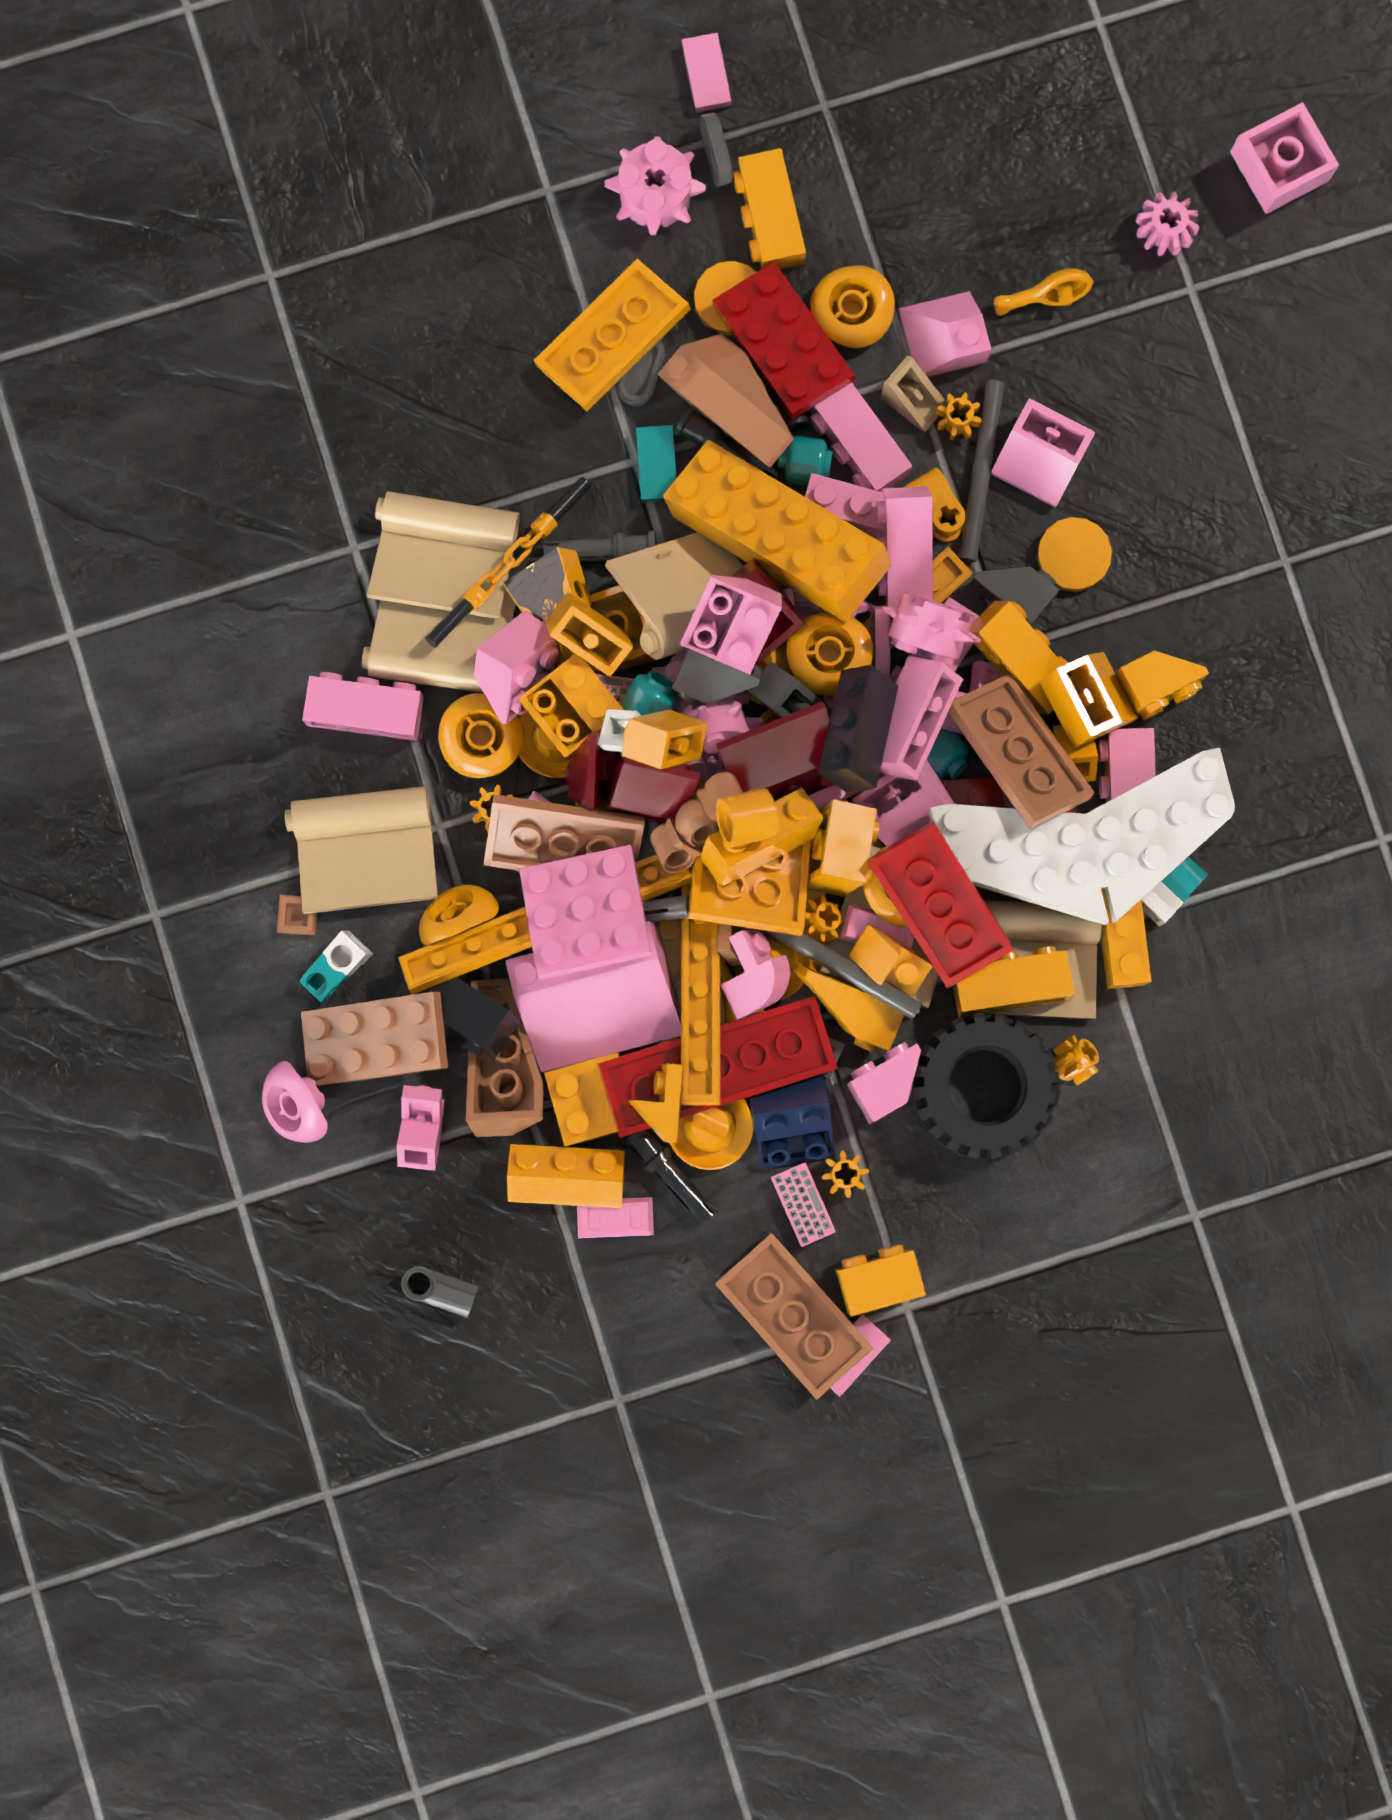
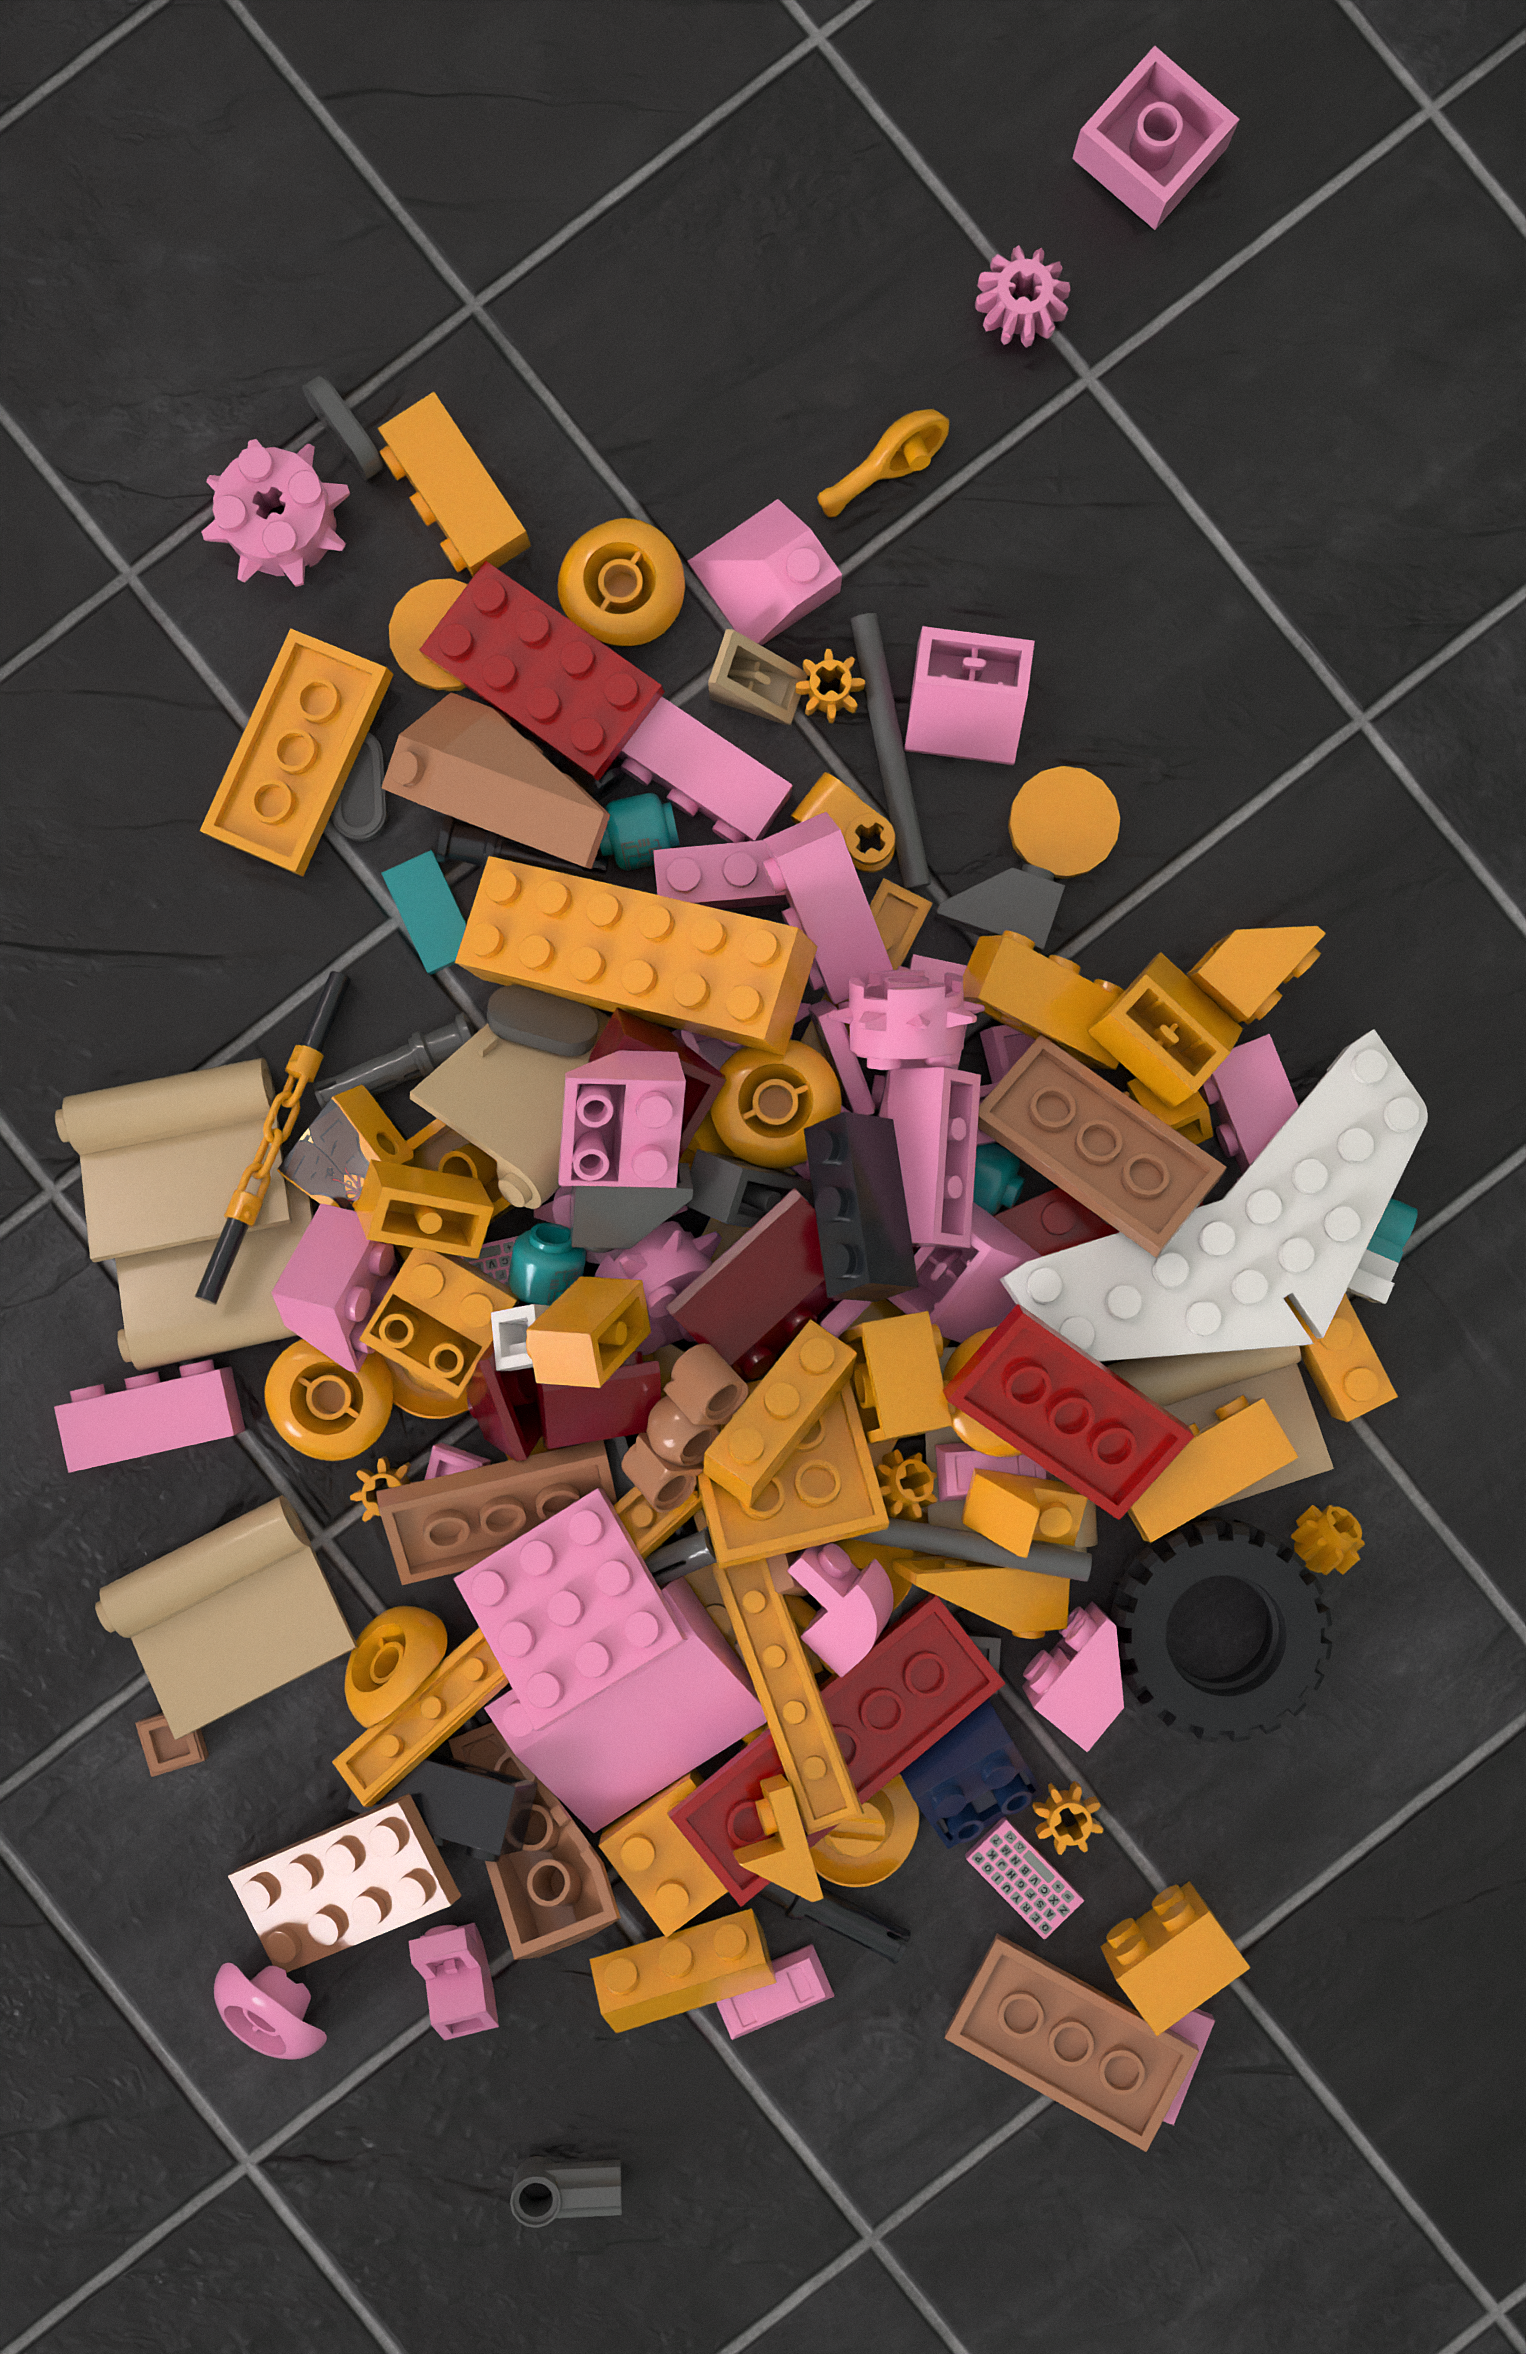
camera: 20 degrees left, 5 degrees up
(335, 966) = (252, 1792): leg -> none
(702, 550) = (542, 1020): none -> dark grey tile
(706, 72) = (287, 319): bright pink tile -> none
(747, 817) = (751, 1411): light orange piece -> none

